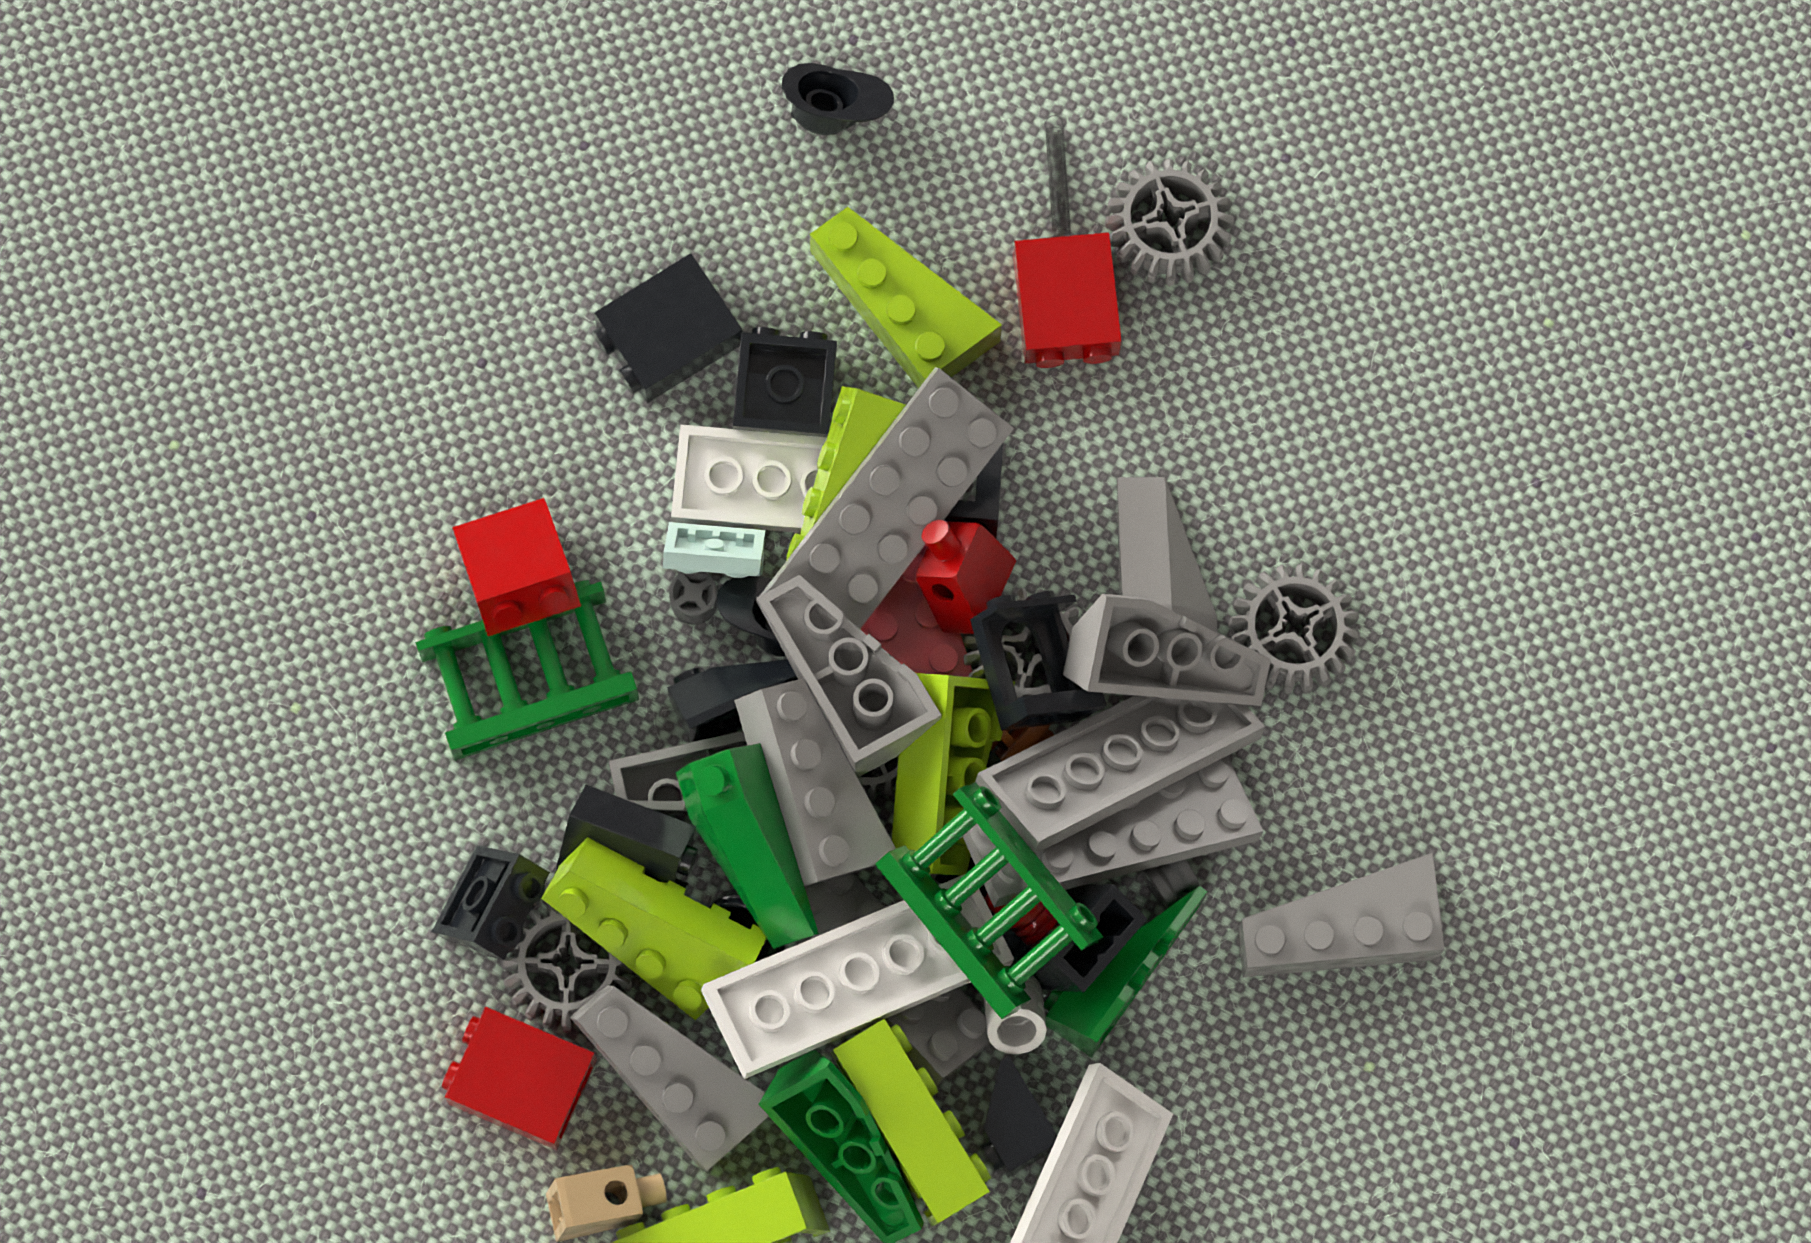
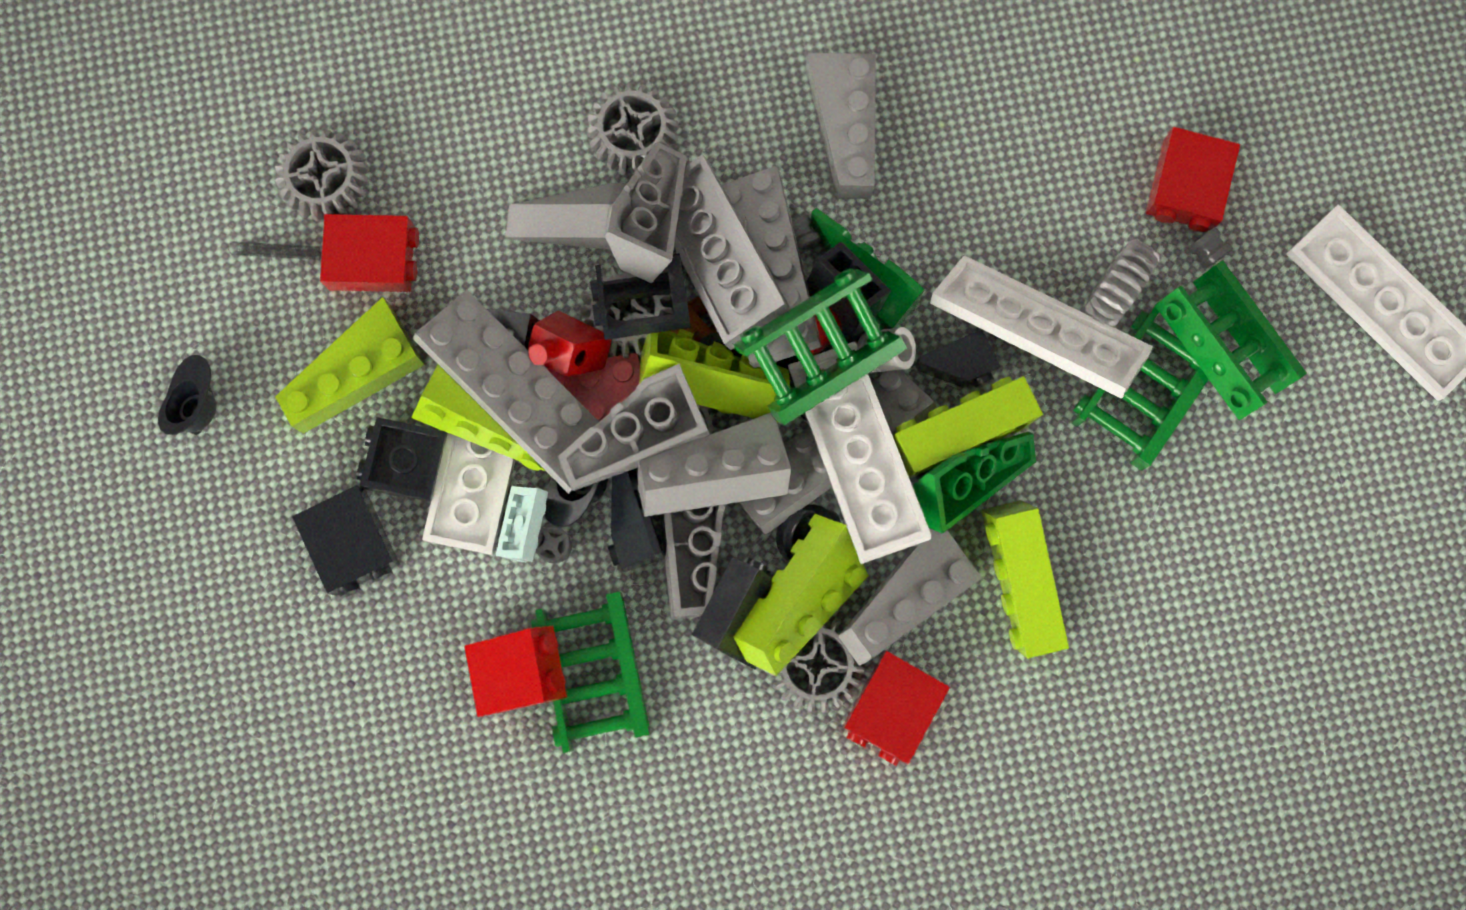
camera: 80 degrees left, 5 degrees up
(492, 902) = (766, 715): black plate -> none
(580, 1205) = (996, 671): tan torso -> none
(744, 829) = (742, 519): green wedge -> none

